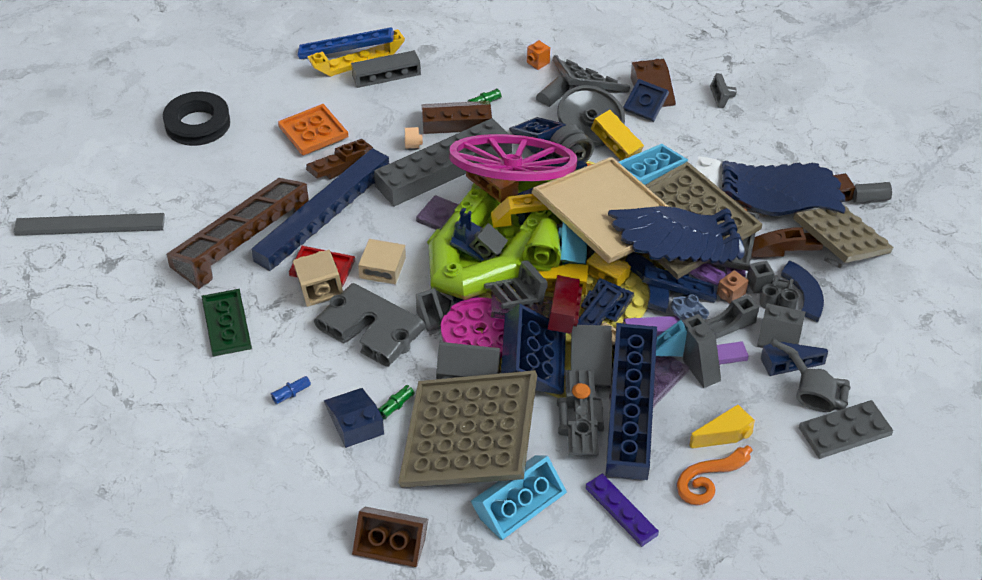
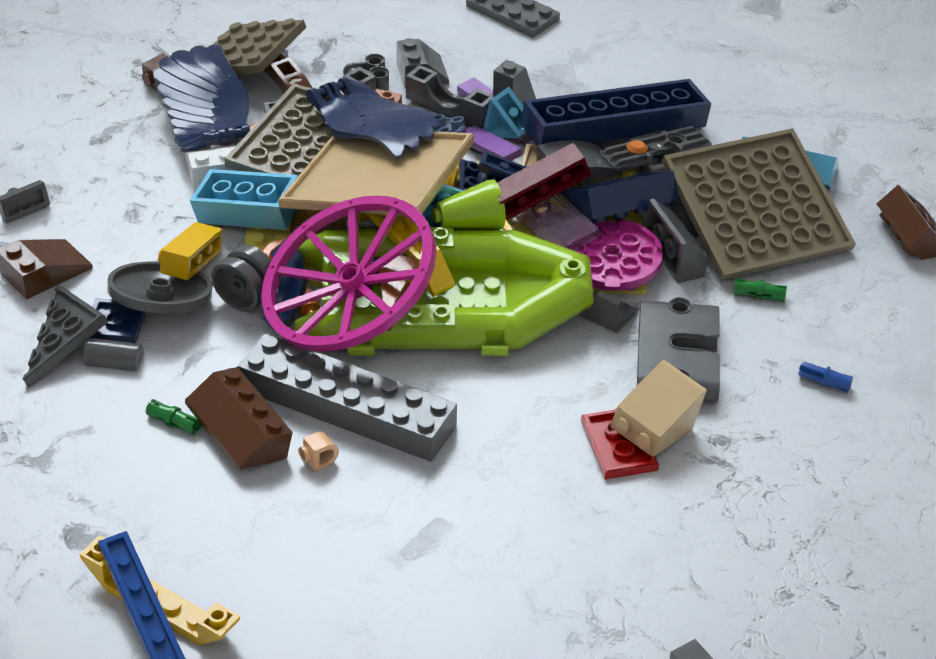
camera: 120 degrees left, 5 degrees down
(211, 244) = (639, 533): reddish brown window -> none
(226, 322) = (784, 487): dark green tile -> none
(313, 129) = (370, 571): orange plate -> none
(318, 211) = (525, 479): dark blue brick -> none
(340, 161) = (413, 506): reddish brown slope -> none
(355, 417) = (809, 308): dark blue slope -> none
(382, 262) = (574, 379): tan piece -> none
(386, 69) = (174, 548): dark grey brick -> none
(436, 212) = (441, 370): clear purple tile -> none
(464, 234) = (486, 294): dark blue plate -> none
(488, 242) = (491, 270): dark grey head -> none
(528, 284) = (534, 217): dark grey plate -> none
(537, 128) = (222, 328): dark blue slope -> none
(538, 55) = (40, 388): orange brick -> none
(622, 510) = (732, 107): dark purple plate -> none
(646, 100) = (88, 254): dark blue tile -> none
(724, 429) = (585, 67): yellow slope -> none
(730, 463) = (619, 57): orange plant -> none
(778, 362) = (457, 52): dark blue slope -> none
(812, 294) = (333, 68): dark blue tile -> none
(816, 386) = (482, 24): dark grey piece -> none
(872, 192) = (148, 47): dark grey brick -> none

